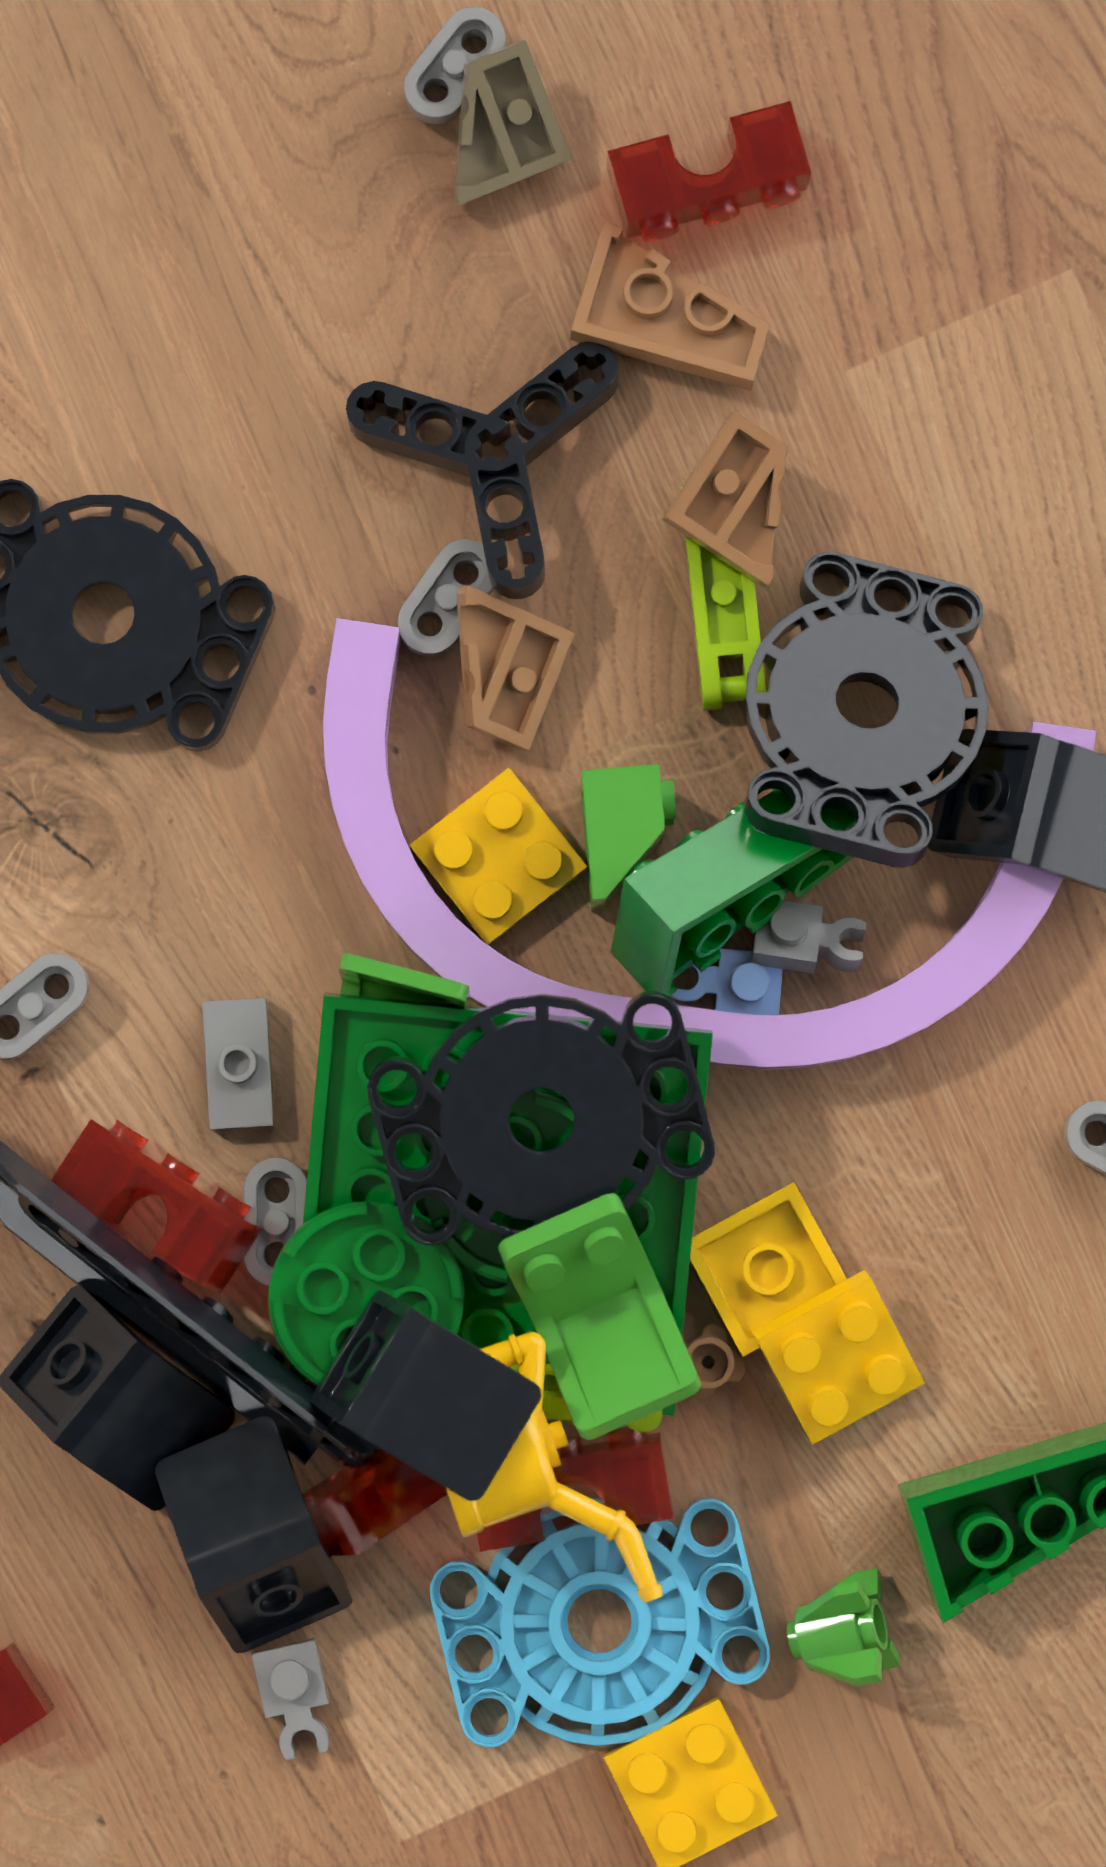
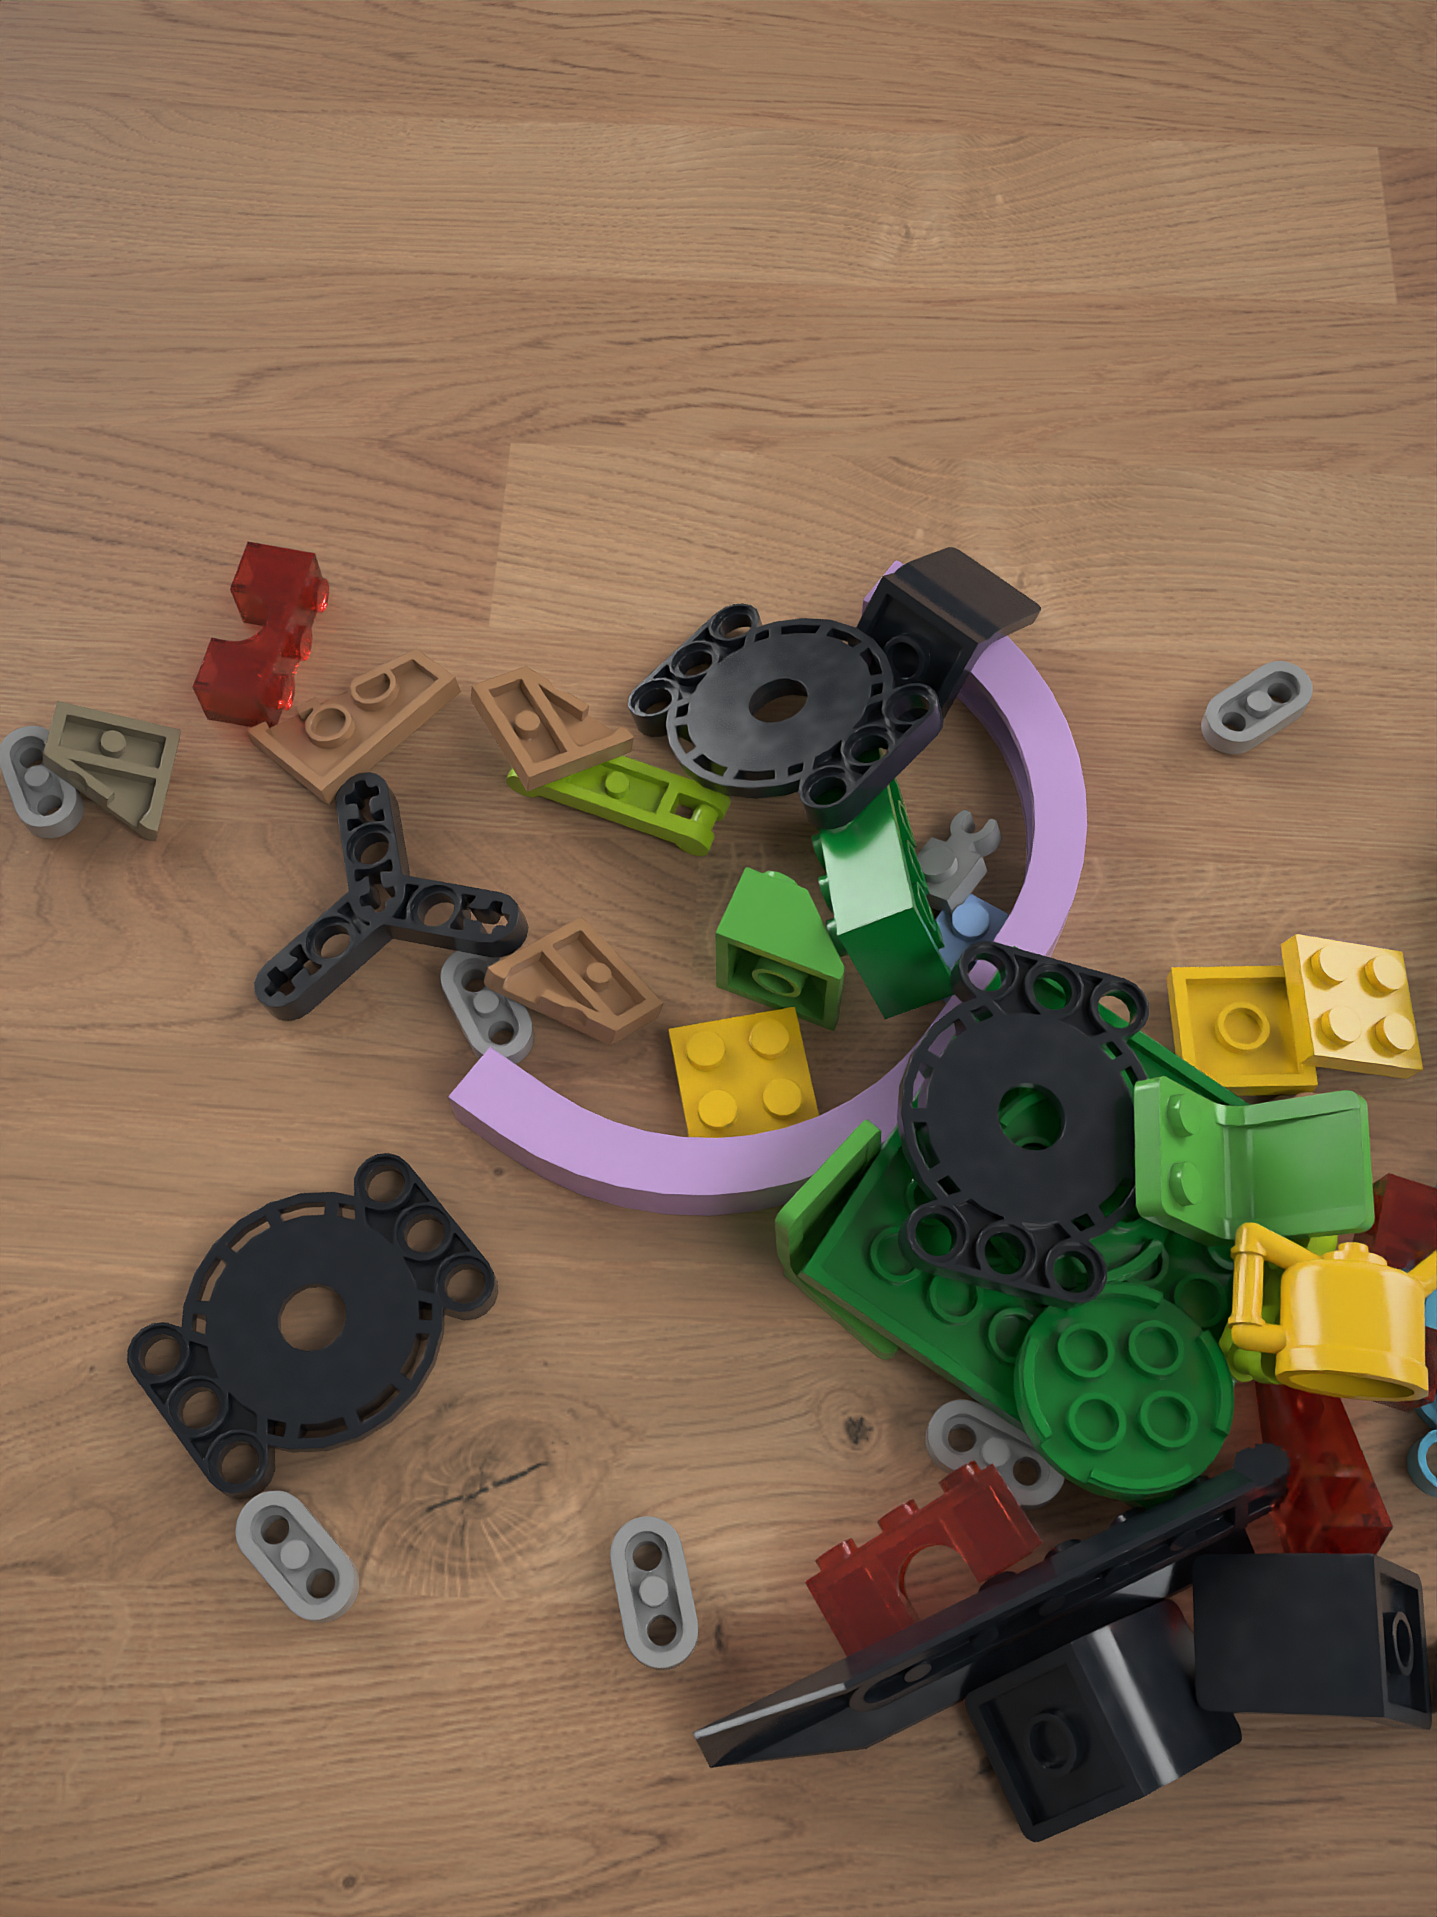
camera: 60 degrees left, 20 degrees down
(238, 1064) = (816, 1415): light grey plate -> none
(426, 1396) = (1263, 1355): black piece -> none

